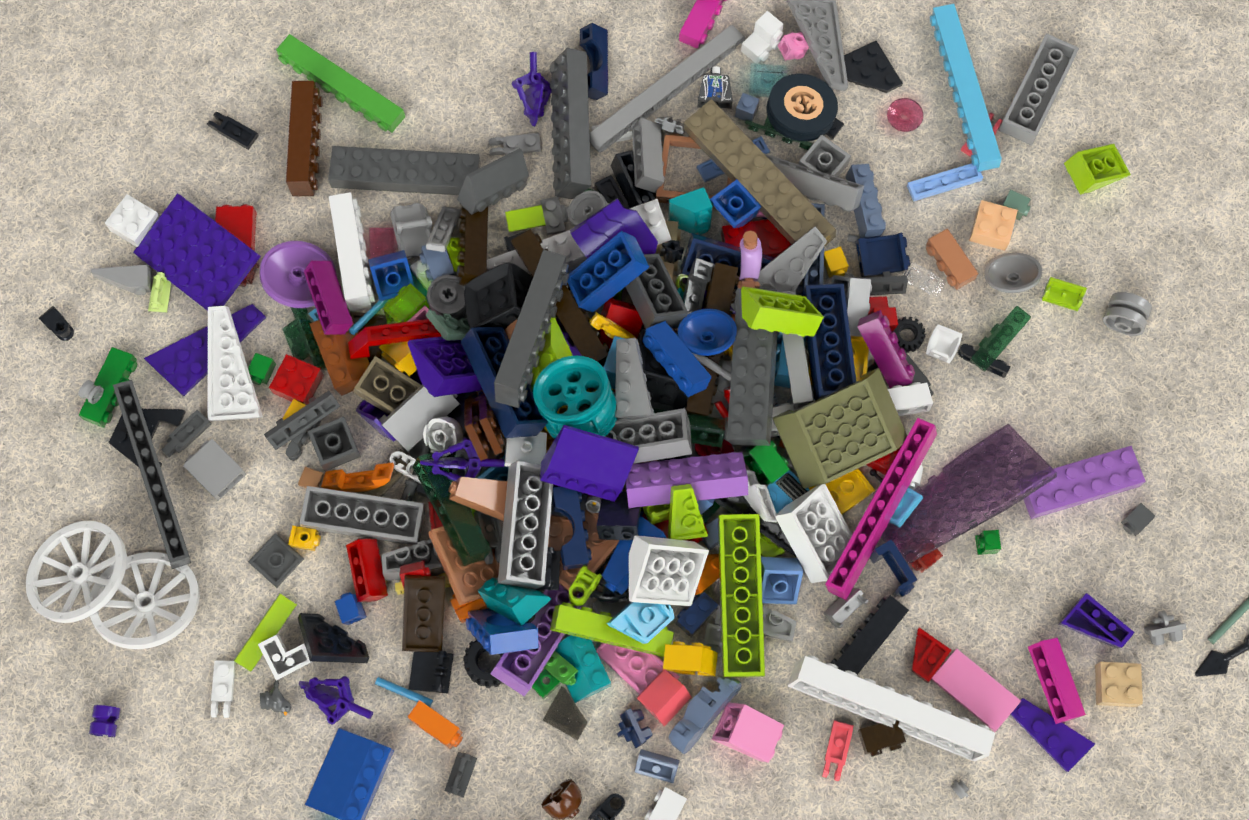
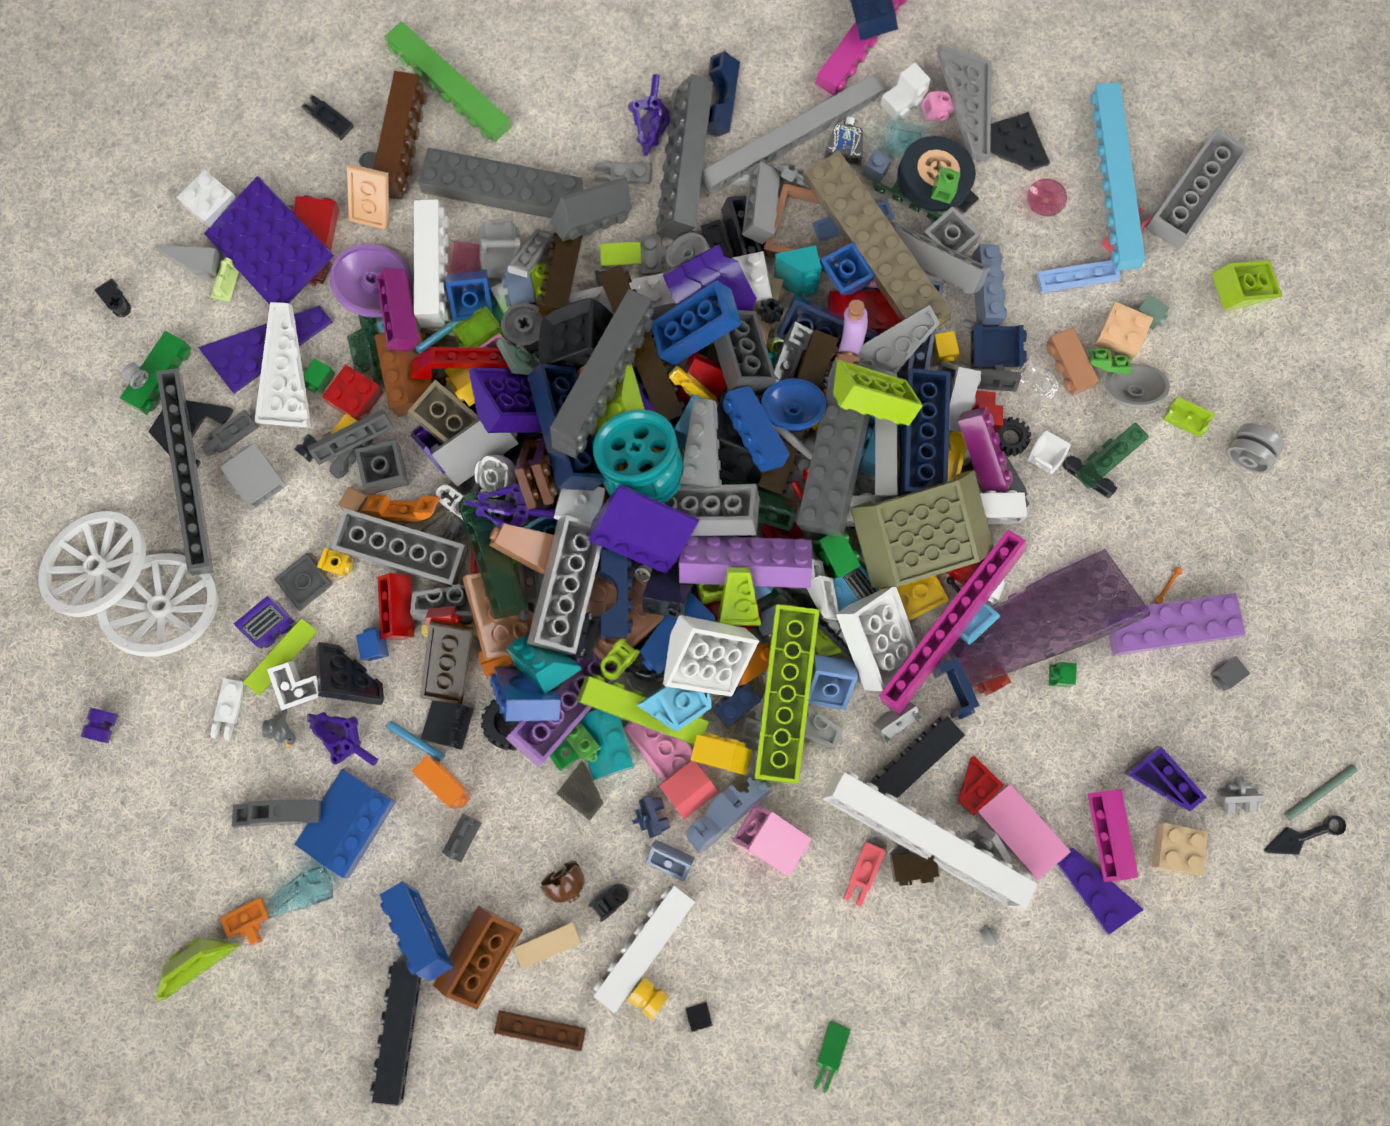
camera: 10 degrees right, 5 degrees up
(247, 602) = (264, 622): none -> slope
(260, 437) = (303, 450): none -> black wheel
(277, 165) = (367, 160): none -> dark grey piece
(284, 198) = (368, 196): none -> light nougat tile
(284, 776) = (276, 812): none -> dark grey slope
(812, 117) = (945, 185): none -> bright green brick
(945, 700) = (990, 842): none -> light grey hinge
(978, 253) = (1104, 360): none -> bright green slope
(1077, 434) = (1159, 599): none -> orange hinge

